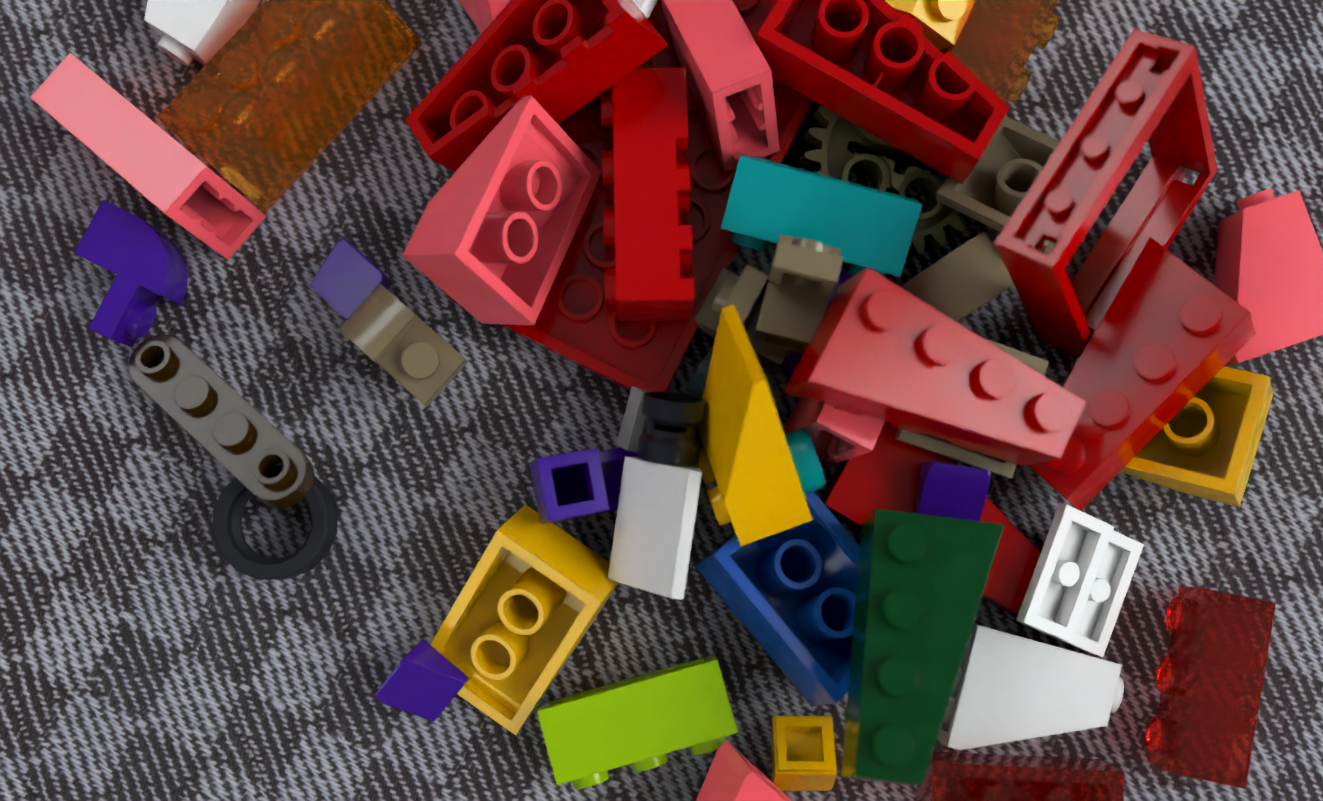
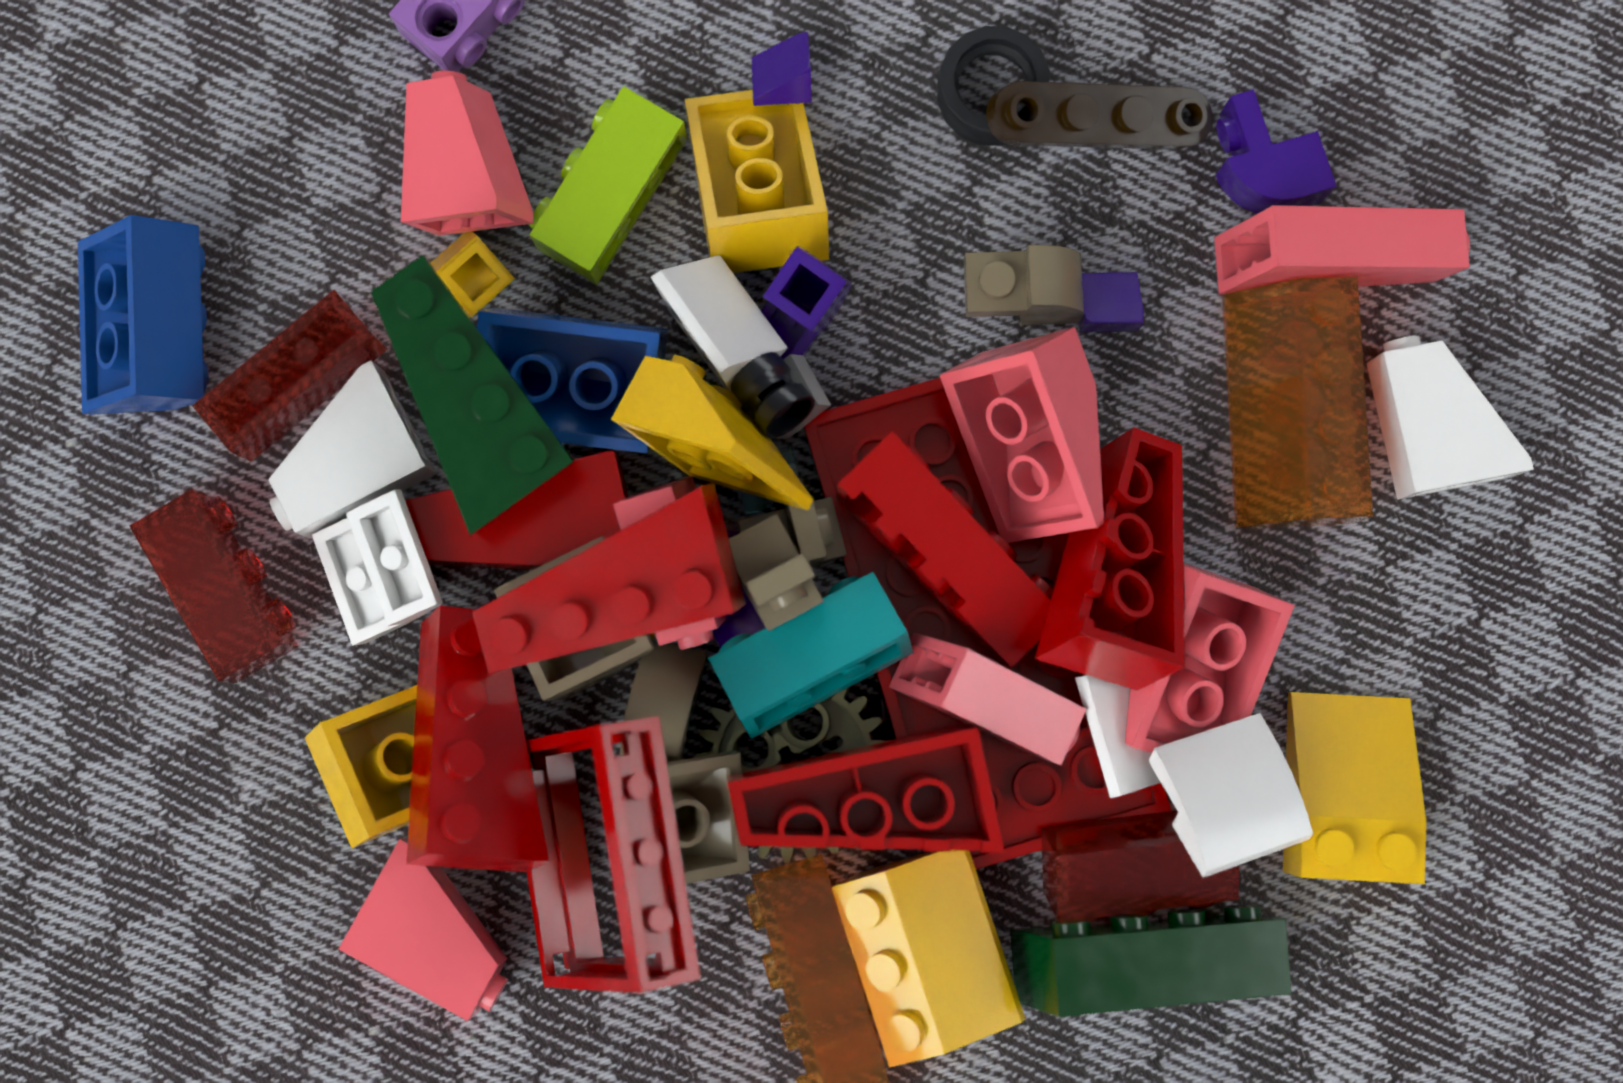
camera: 145 degrees right, 0 degrees up
(805, 461) = (656, 458): teal tile -> none
(952, 491) = (526, 535): dark purple slope -> none

